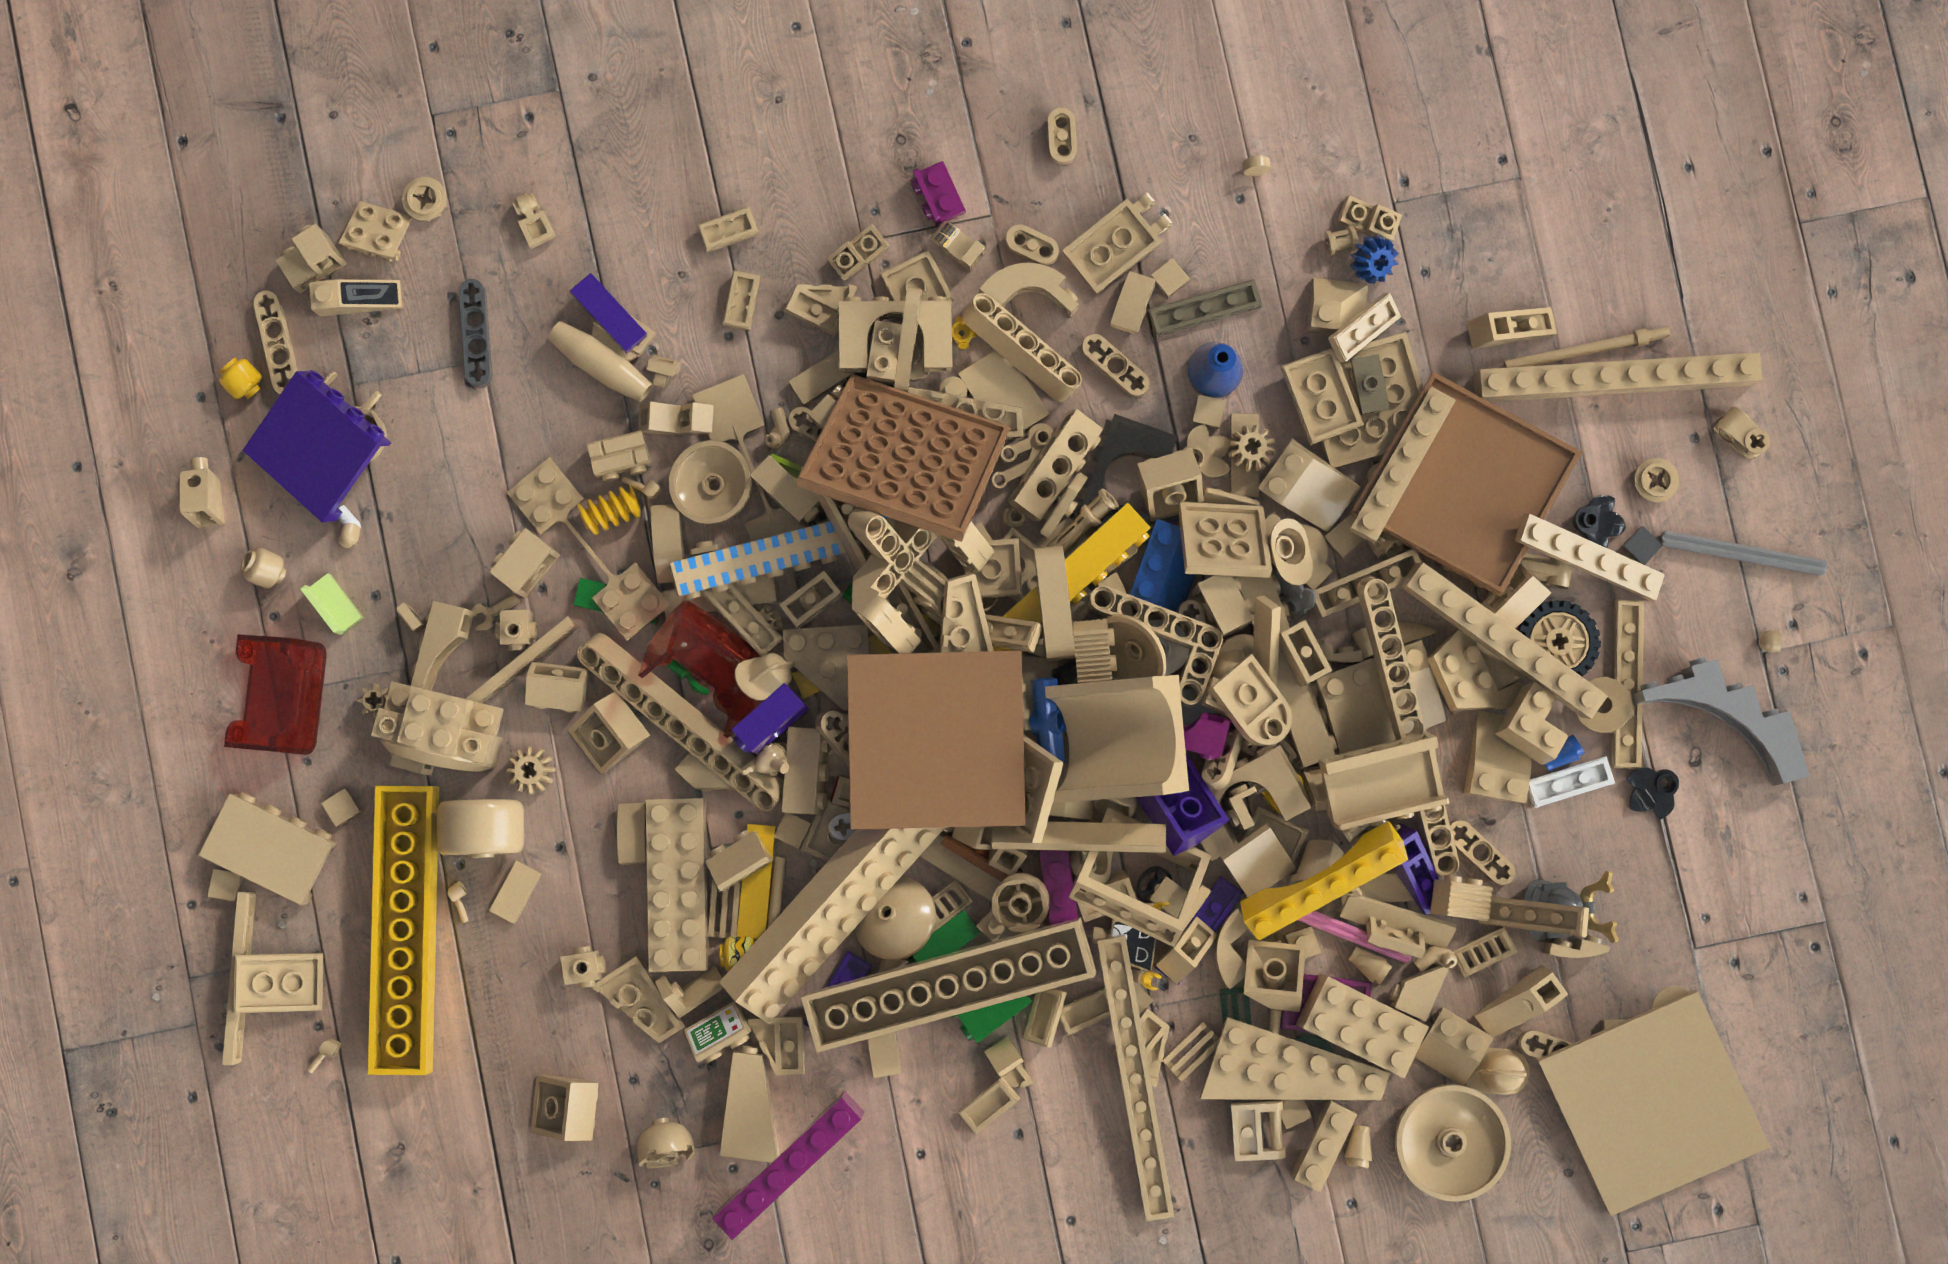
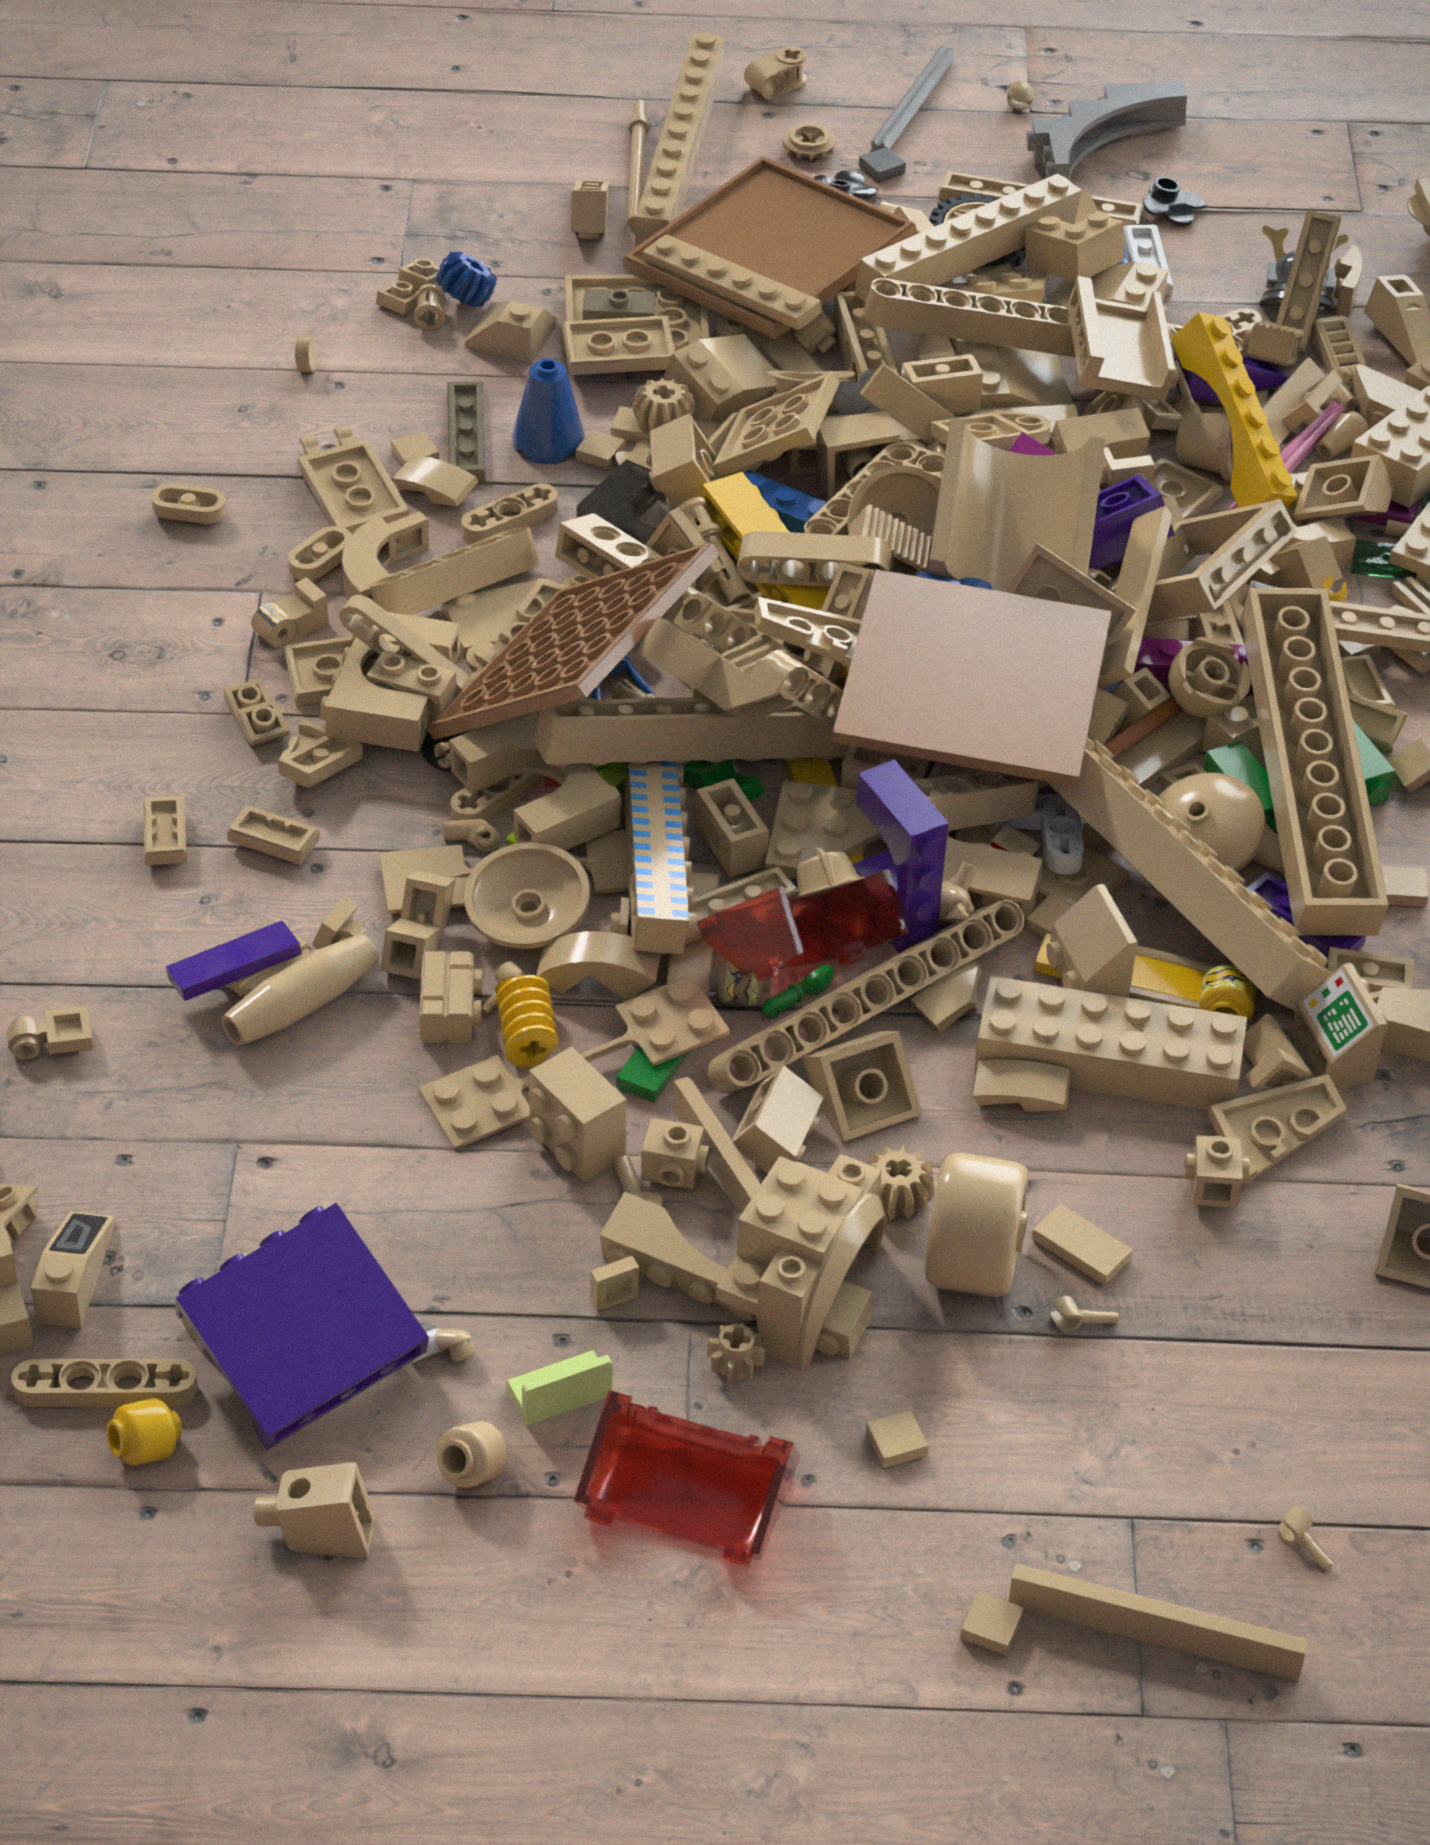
camera: 75 degrees left, 40 degrees down
(268, 847) = (946, 1536): tan panel -> none
(277, 982) = (1175, 1560): tan tile -> none
(403, 931) = (1119, 1373): yellow brick -> none
(480, 332) = (192, 1140): dark grey beam -> none
(819, 378) = (415, 780): tan tile -> none
(938, 193) = (210, 627): magenta bracket -> none
(1258, 861) = (1193, 484): tan tile -> none
(1364, 327) = (547, 297): tan tile -> none
(1589, 557) = (887, 176): tan plate -> none

